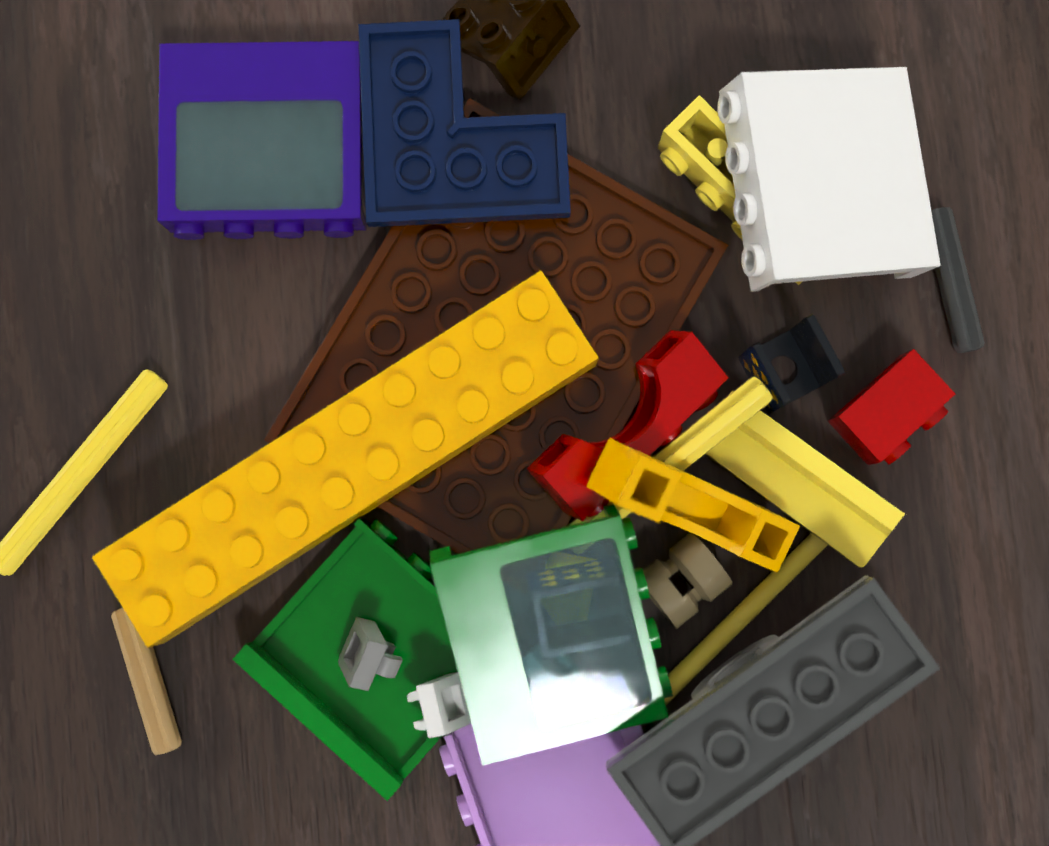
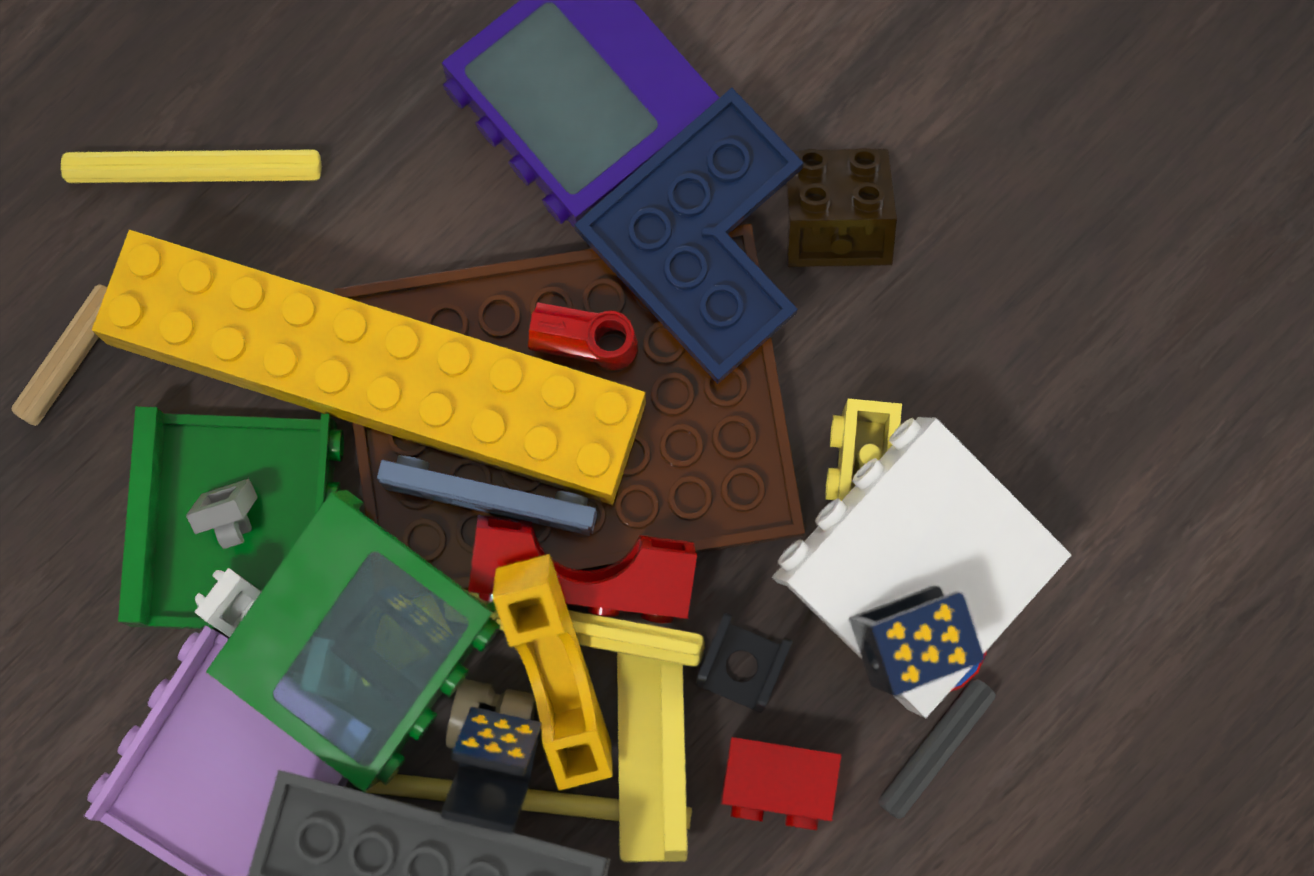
camera: 50 degrees right, 5 degrees down
(449, 288) = (577, 335): none -> red piece
(576, 403) = (413, 478): none -> sand blue plate
(731, 610) = (493, 770): none -> piece
(894, 223) = (916, 640): none -> piece

